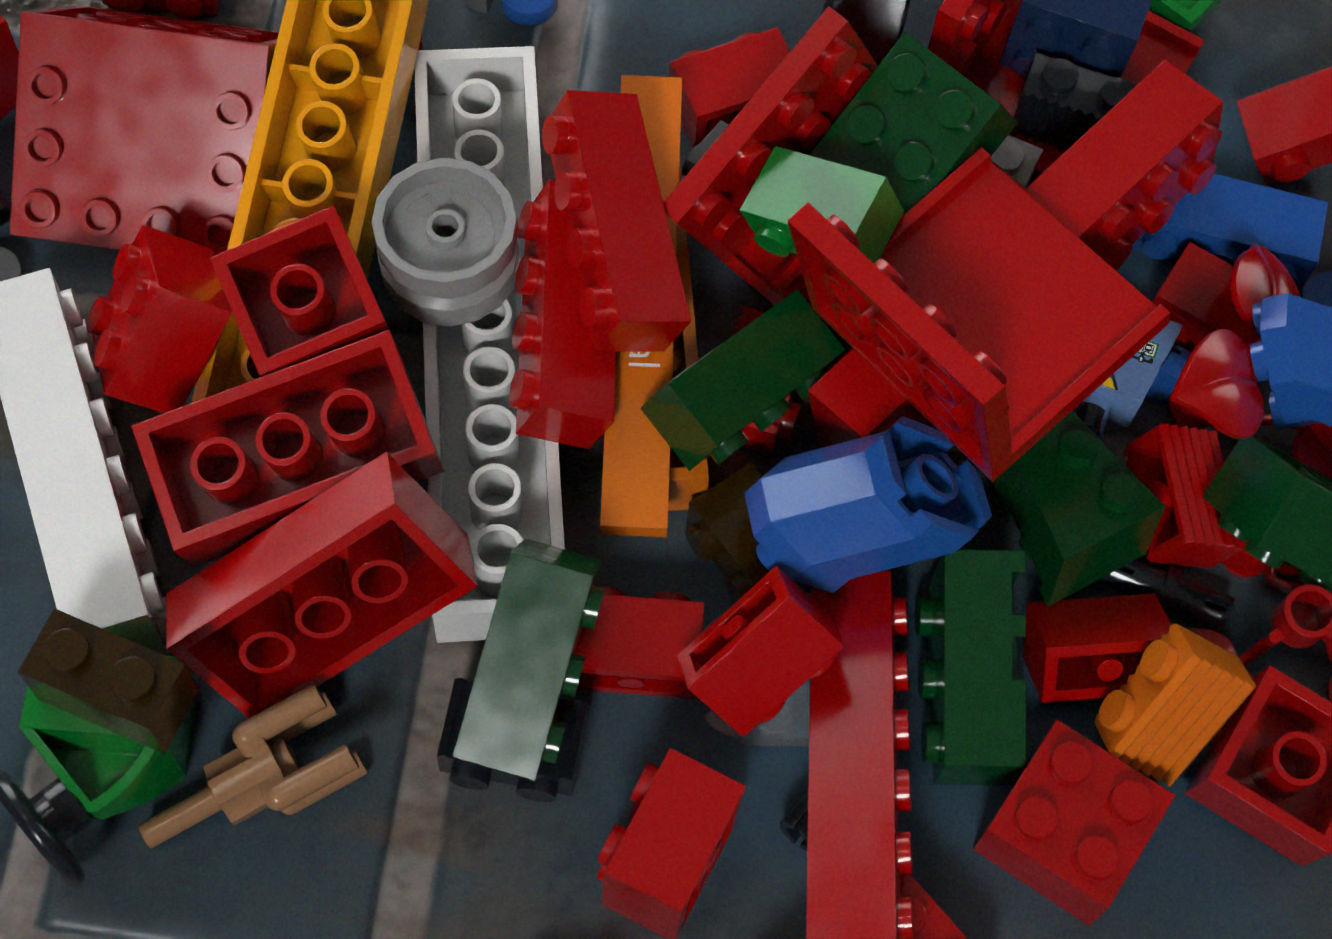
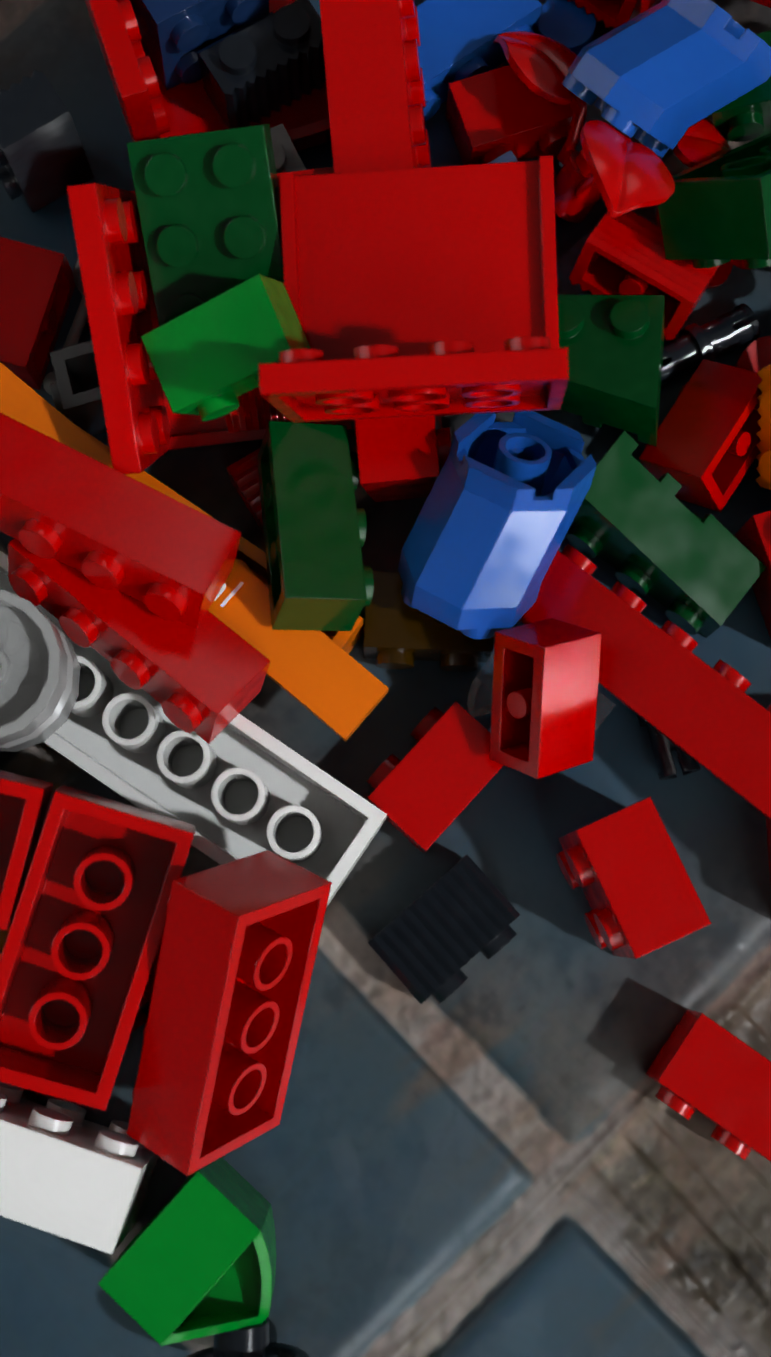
camera: 50 degrees left, 15 degrees up
(109, 681) = (189, 1255): dark brown brick -> none
(264, 770) = (326, 1146): medium nougat plant -> none
(530, 659) = (418, 878): dark green wedge -> none

